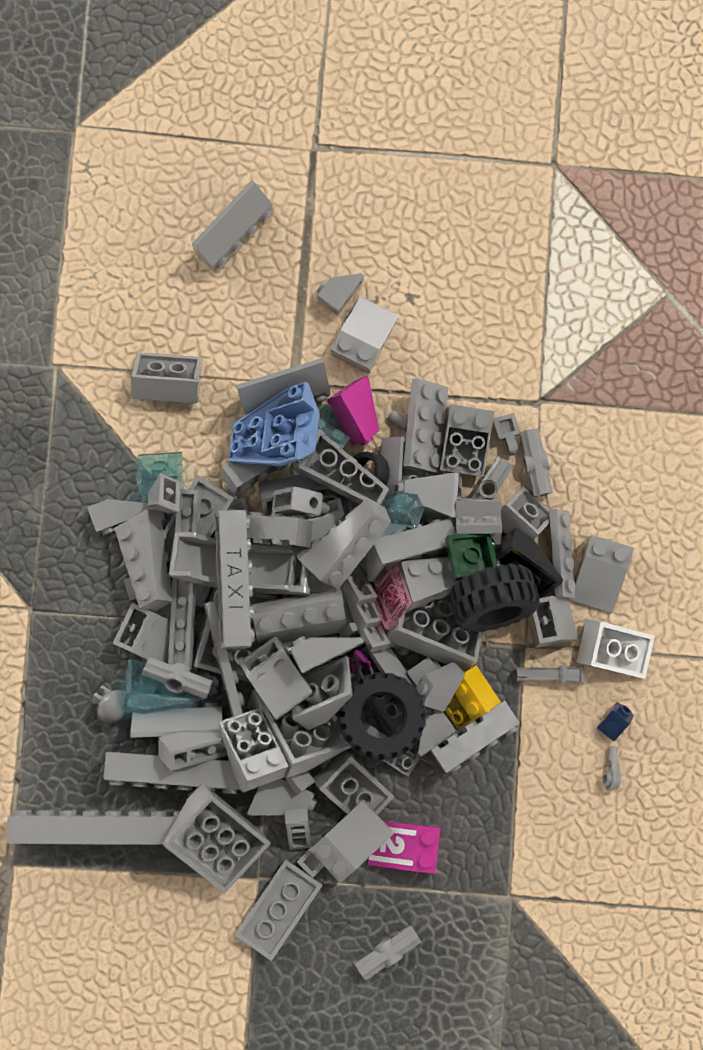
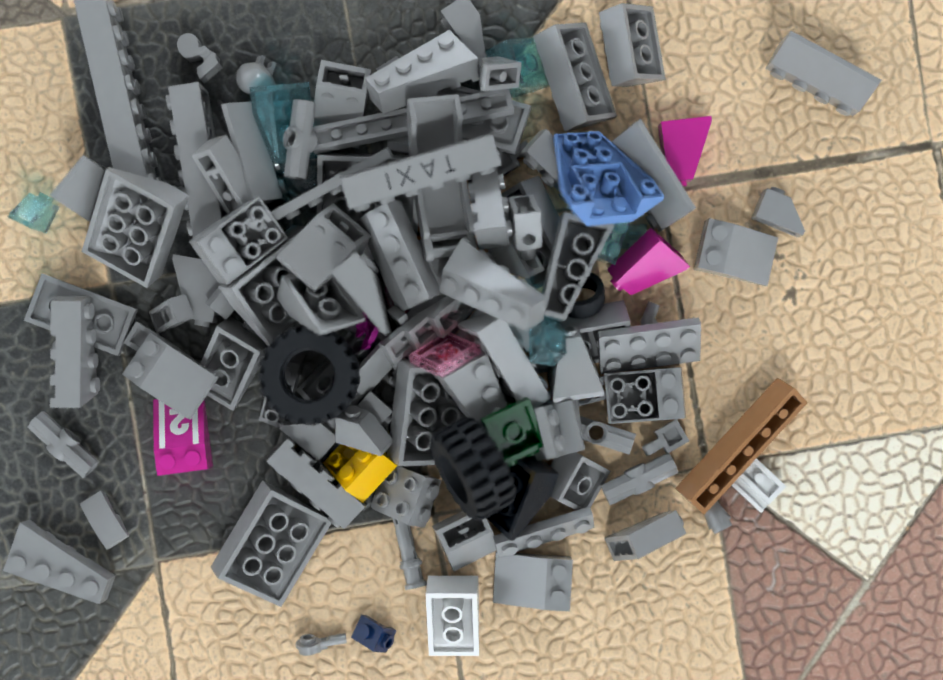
camera: 85 degrees right, 5 degrees up
(73, 755) = (193, 51): none -> light grey leg
(173, 874) = (81, 187): none -> light grey slope
(179, 926) = (35, 212): none -> clear light blue slope
(180, 432) = (574, 75): none -> light grey slope
(262, 356) = (683, 144): none -> dark pink slope
(310, 920) = (73, 352): none -> light grey wedge
(462, 932) = (104, 520): none -> light grey slope
(490, 985) = (52, 563): none -> light grey wedge
(504, 663) = (406, 496): none -> light grey bracket
(517, 791) = (270, 544): none -> light grey slope
(528, 370) = (741, 445): none -> medium nougat brick
(561, 367) = (758, 485): none -> white plate
(581, 407) = (717, 518): none -> light grey cone
(586, 469) = (645, 536): none -> light grey slope

